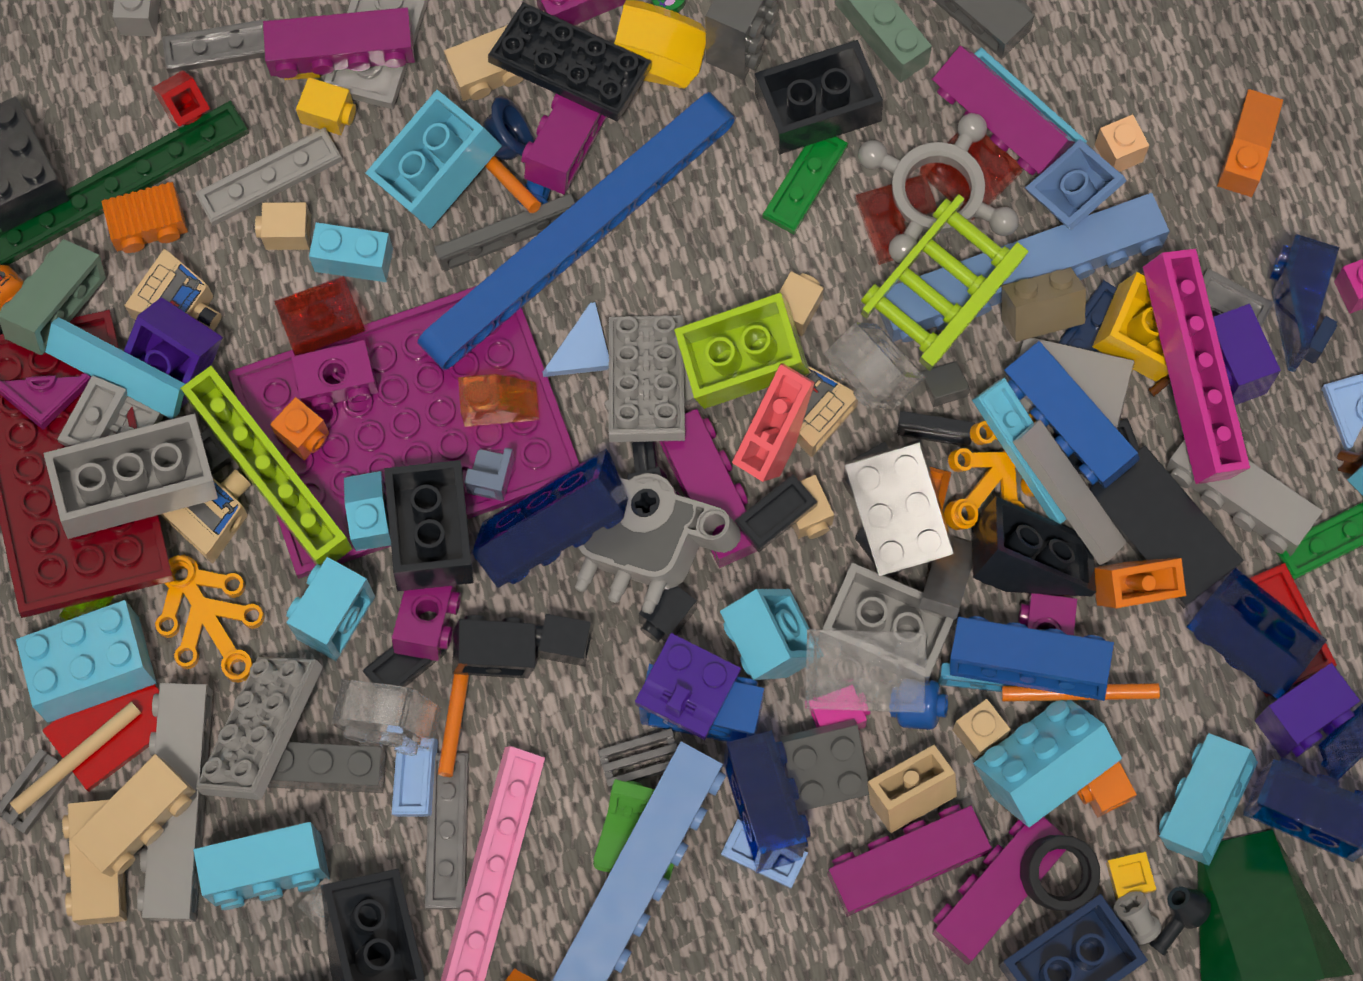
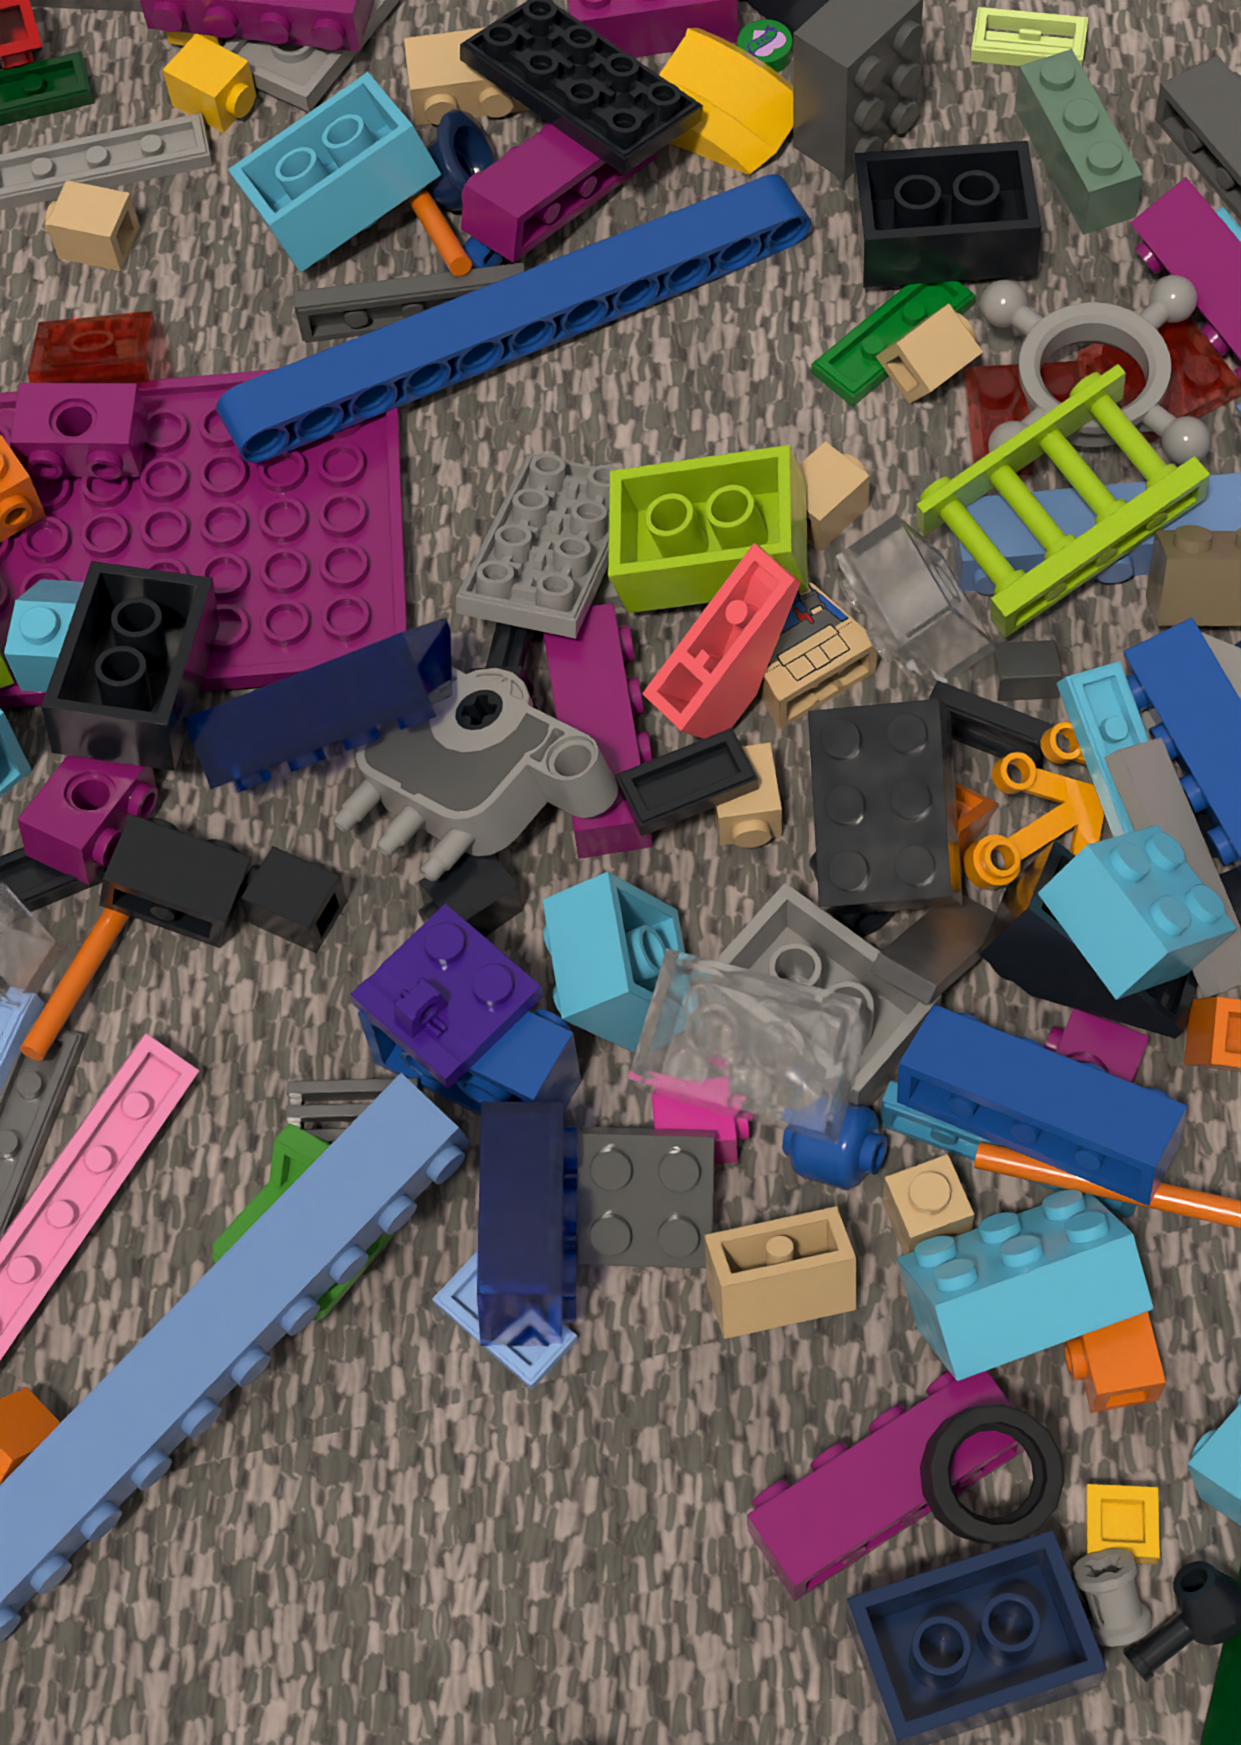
camera: 20 degrees right, 10 degrees down
(351, 252) = (173, 278): medium azure brick -> none
(490, 474) = (263, 626): sand blue panel -> none
(497, 400) = (306, 518): clear orange slope -> none
(582, 349) = (466, 487): light blue tile -> none
(834, 193) = (930, 353): none -> tan brick
(908, 860) = (740, 1390): magenta brick -> none
(1055, 531) = (1137, 910): none -> medium azure brick

